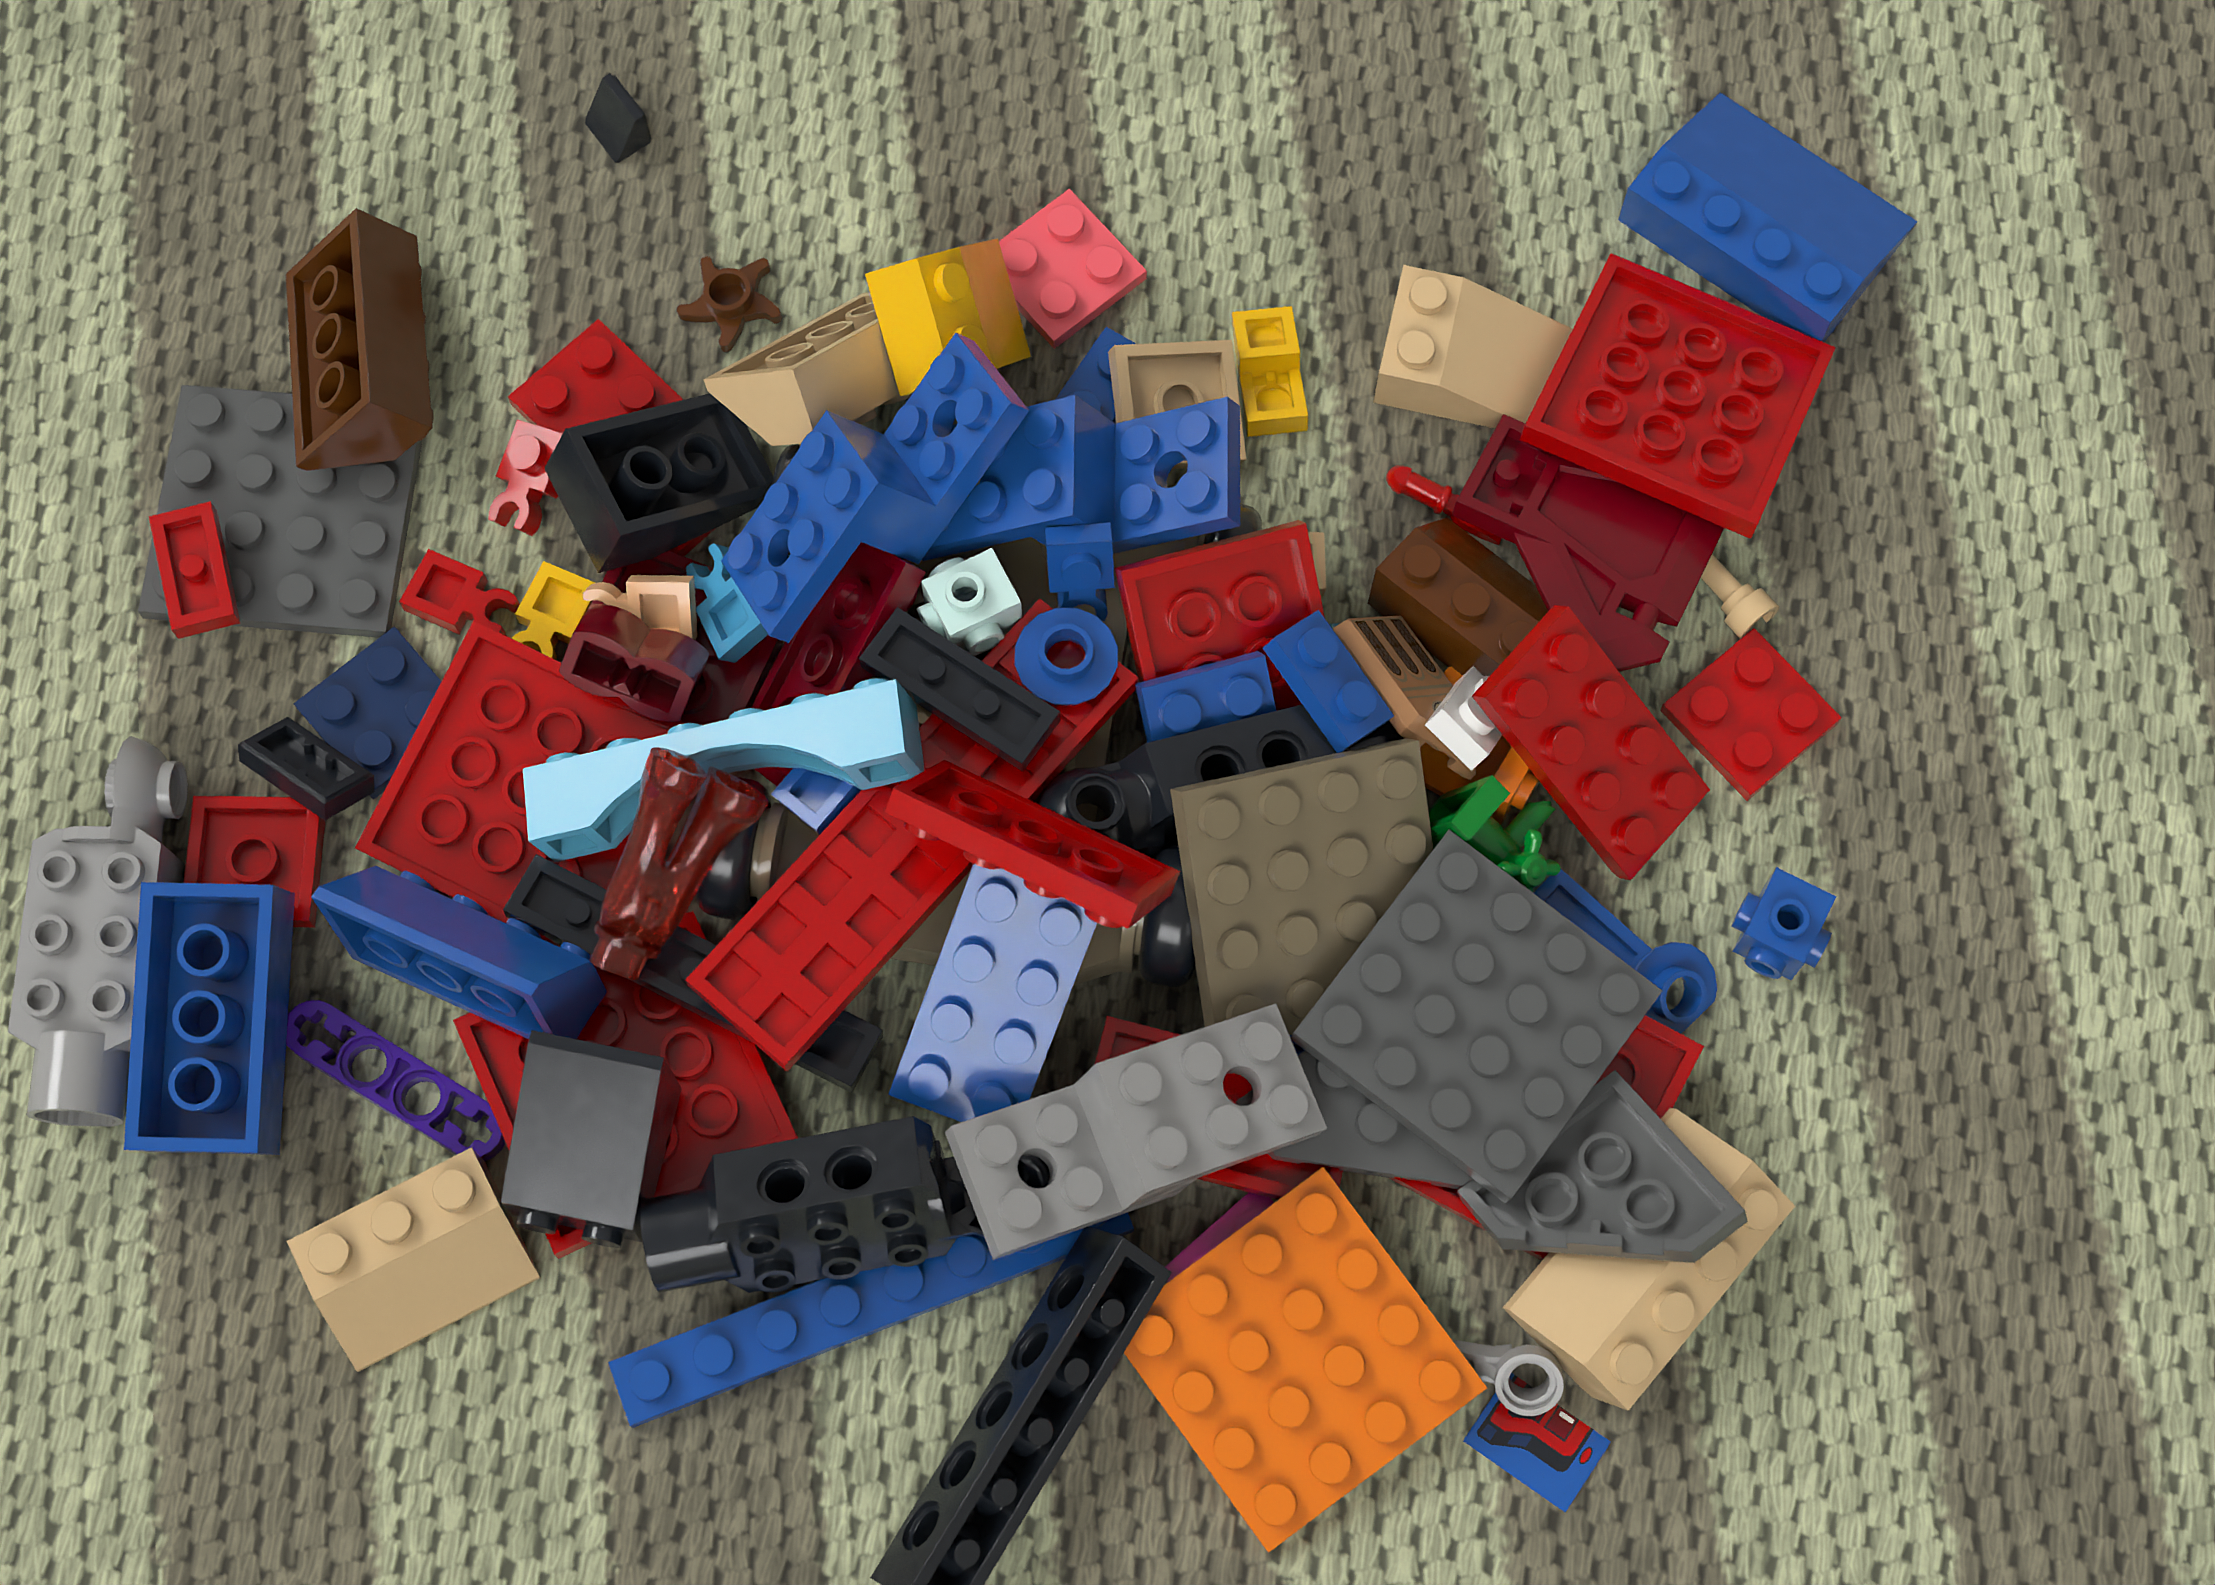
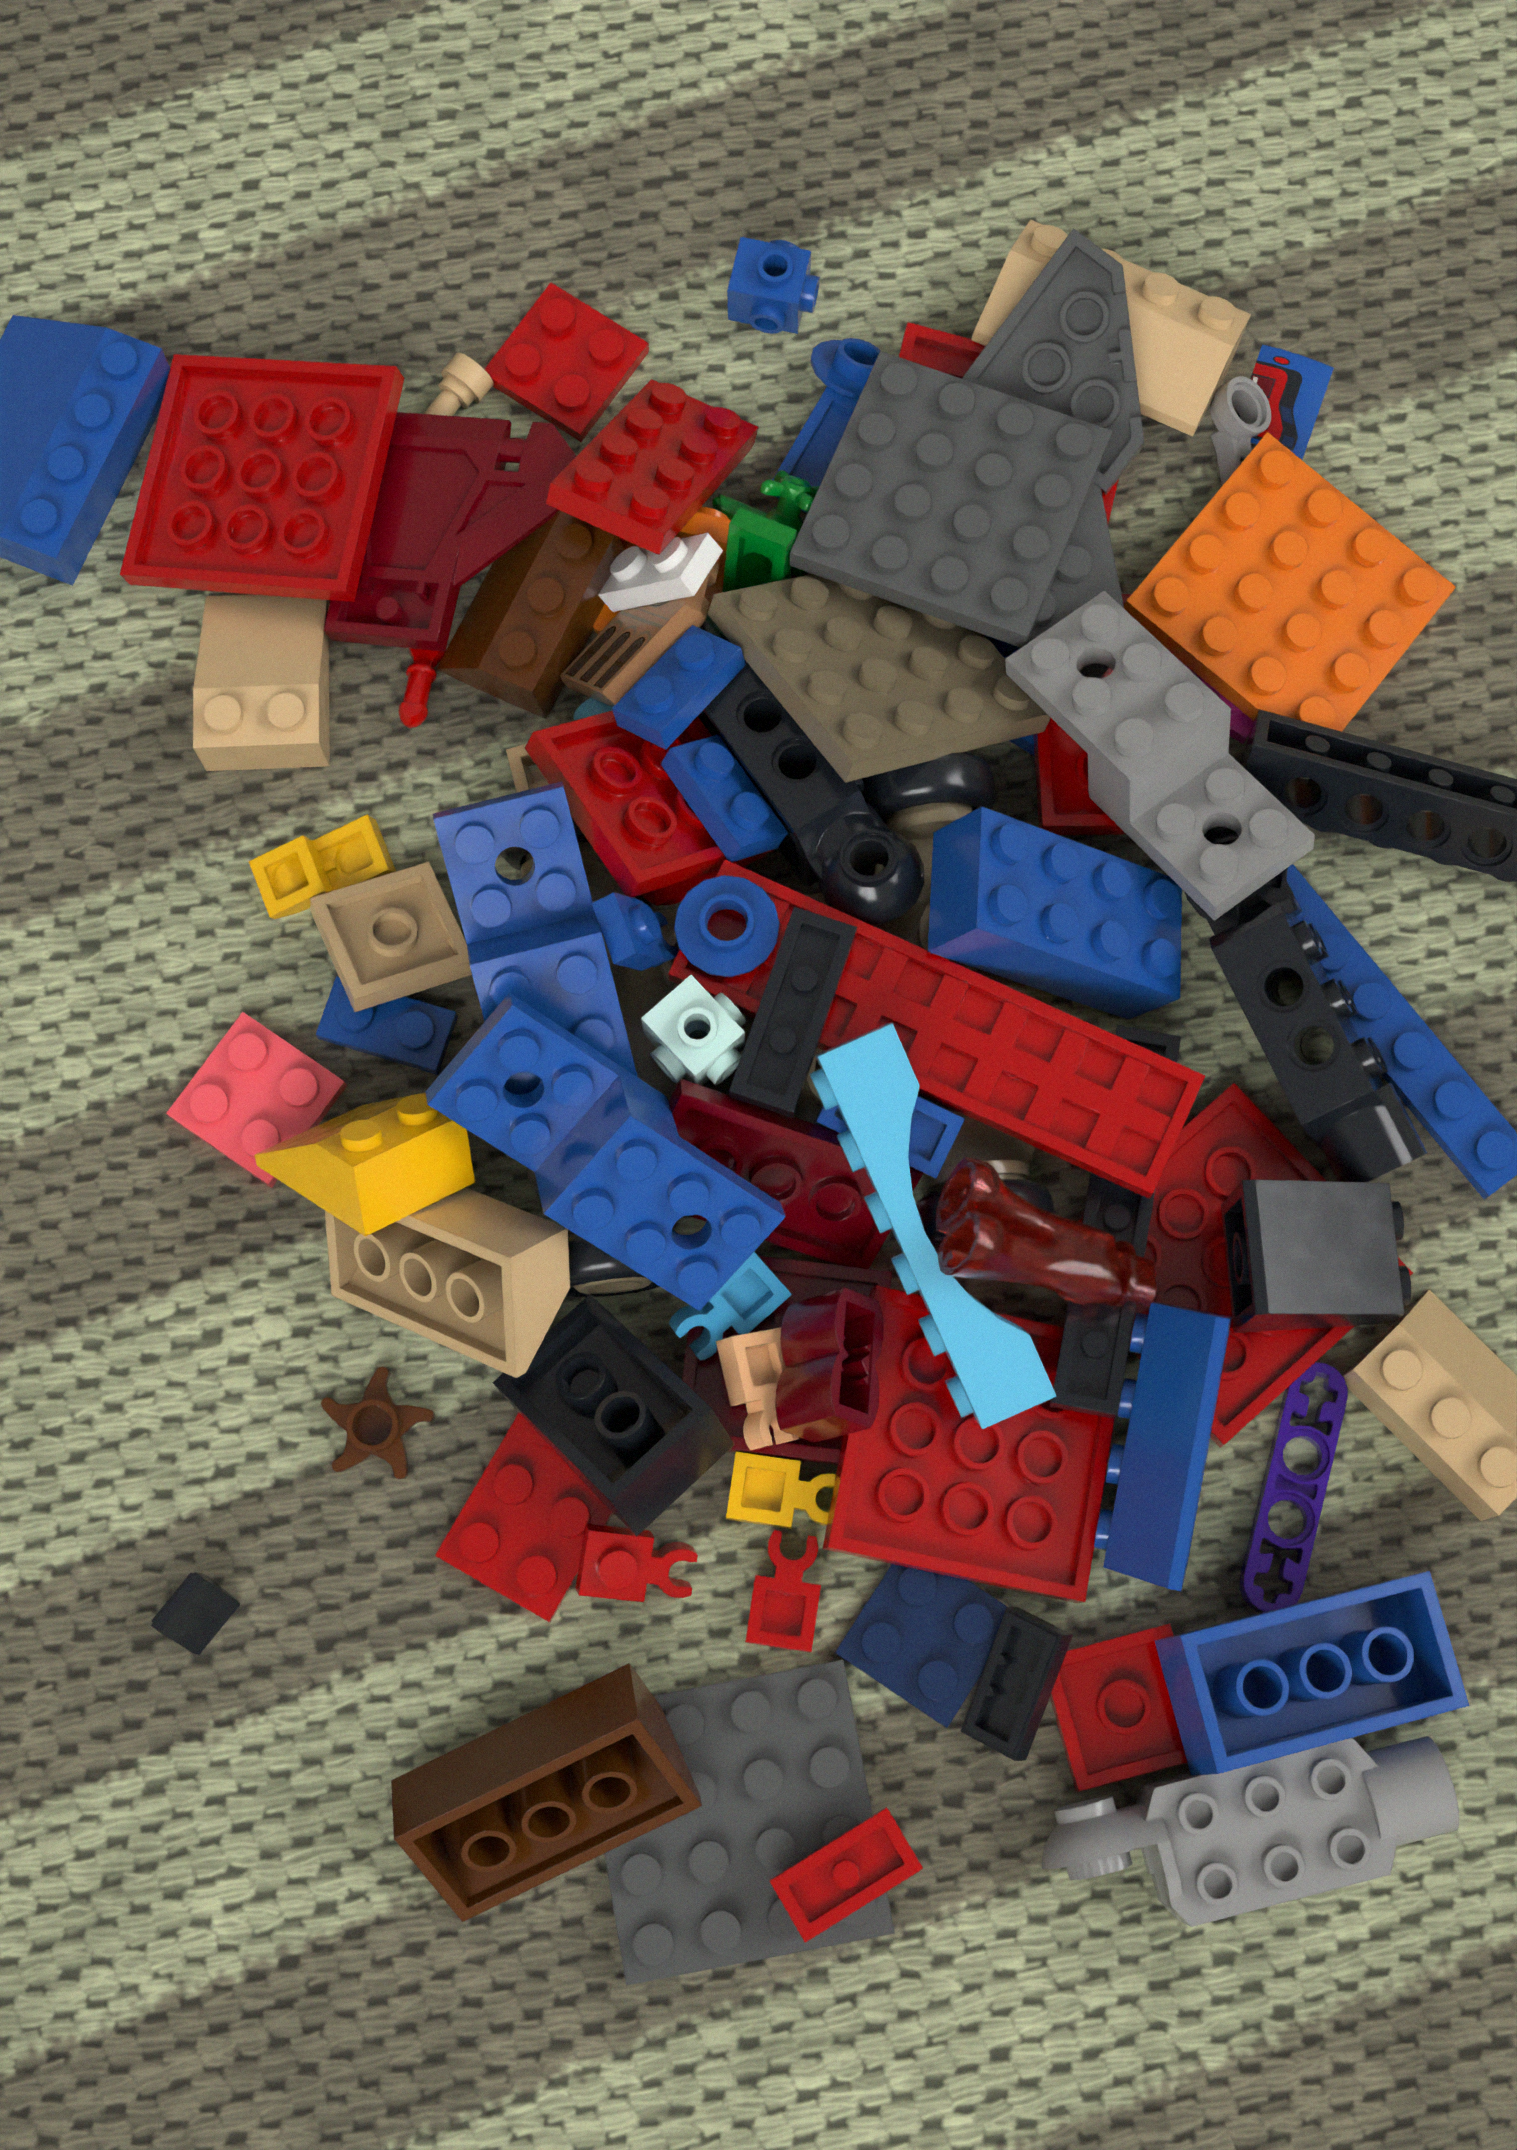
camera: 105 degrees left, 5 degrees up
(1033, 843) = (945, 882): red plate -> none

